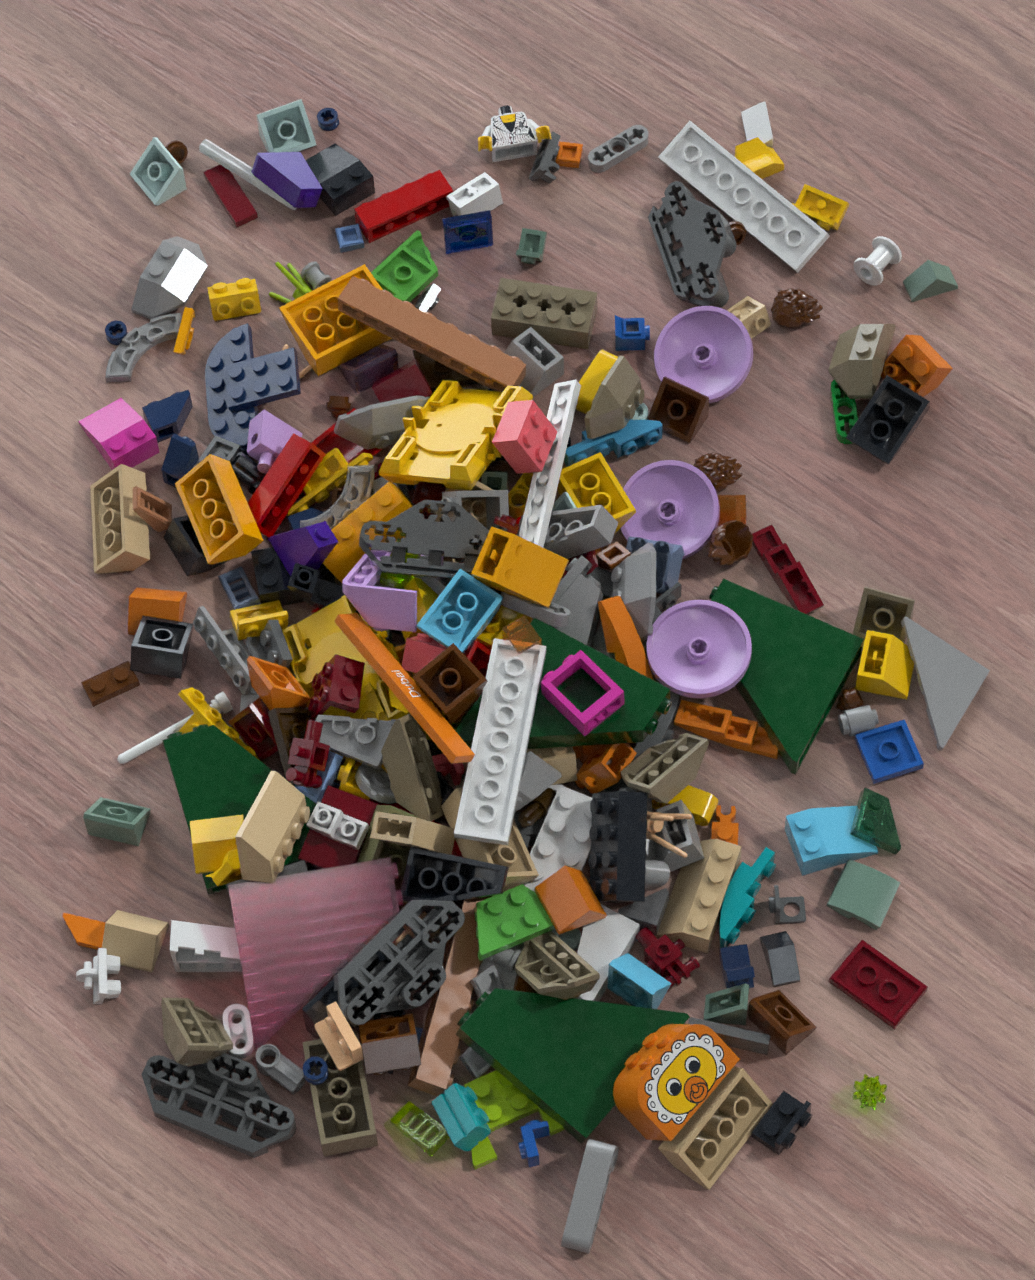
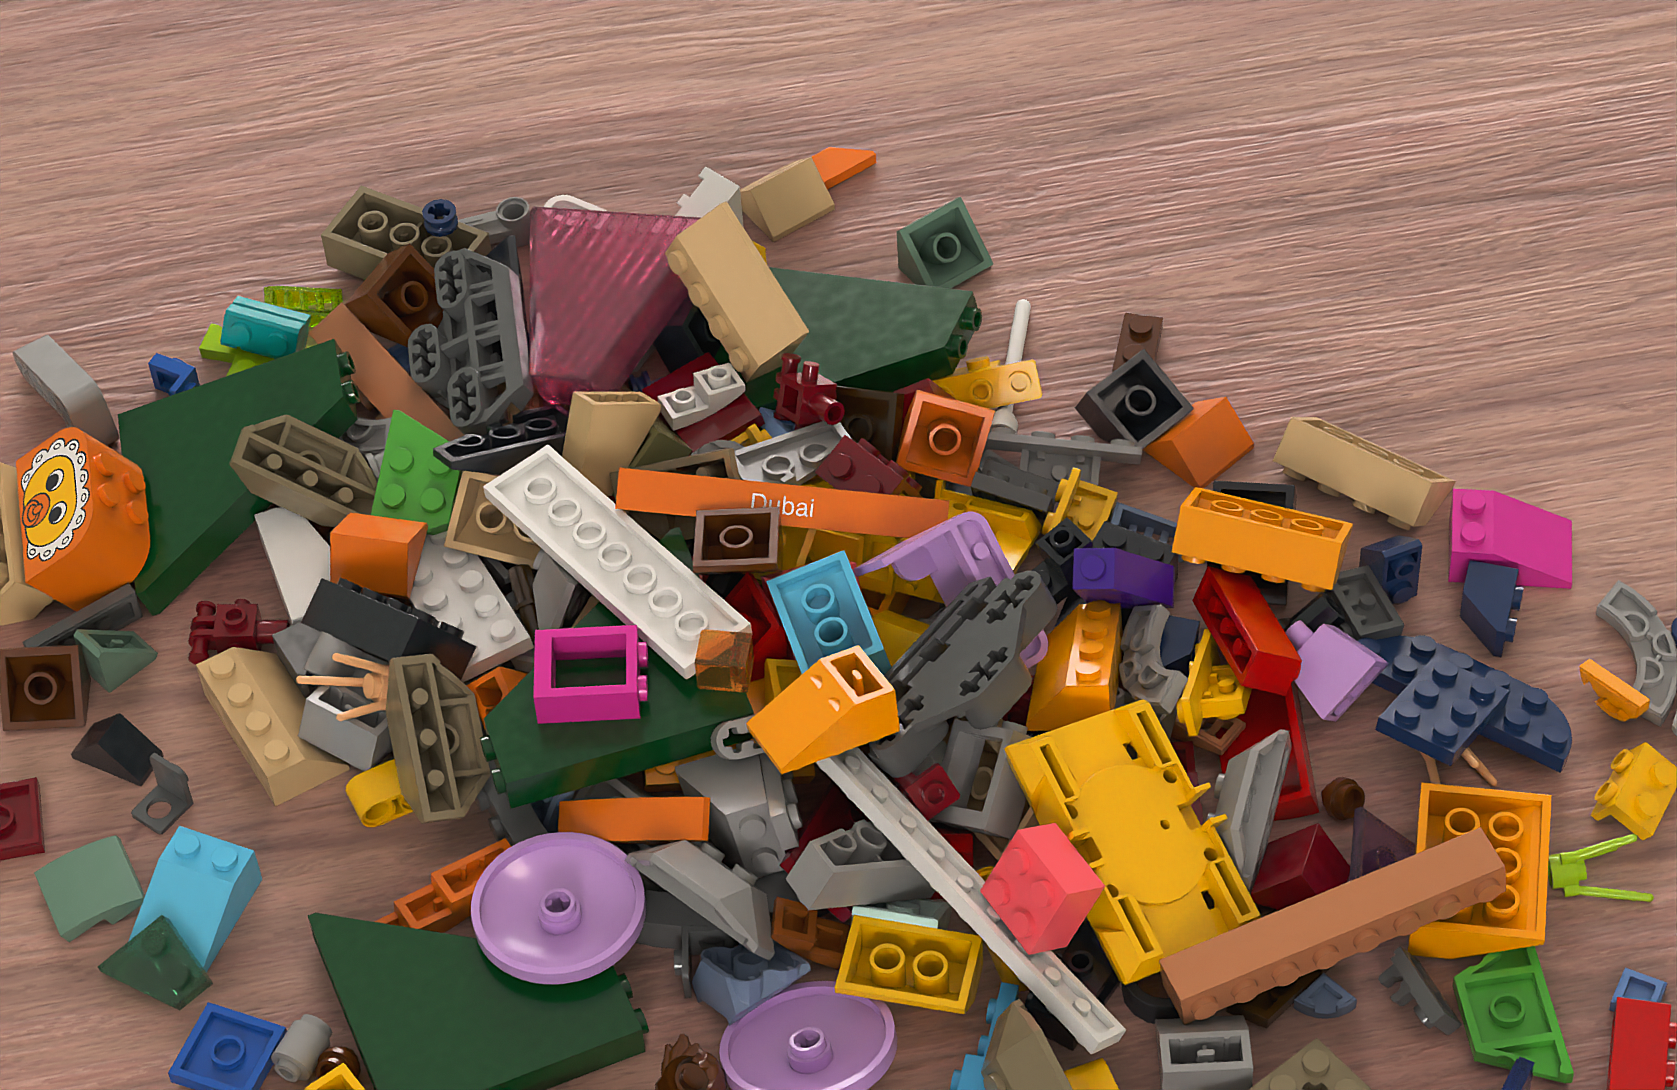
camera: 130 degrees right, 10 degrees down
(102, 965) = (767, 136): white hips -> none
(152, 509) = (1331, 481): nougat slope -> none
(192, 1032) = (601, 162): dark tan wedge -> none
(213, 840) = (812, 285): yellow slope -> none
(216, 1095) = (524, 160): dark grey connector -> none
(314, 275) = (1591, 903): light grey bush -> none
(339, 1038) = (437, 240): light nougat bracket -> none
(636, 982) = (226, 565): medium azure slope -> none
(724, 828) = (323, 807): orange plate -> none
(736, 966) = (140, 688): dark blue brick -> none
(740, 894) = (221, 756): teal slope -> none

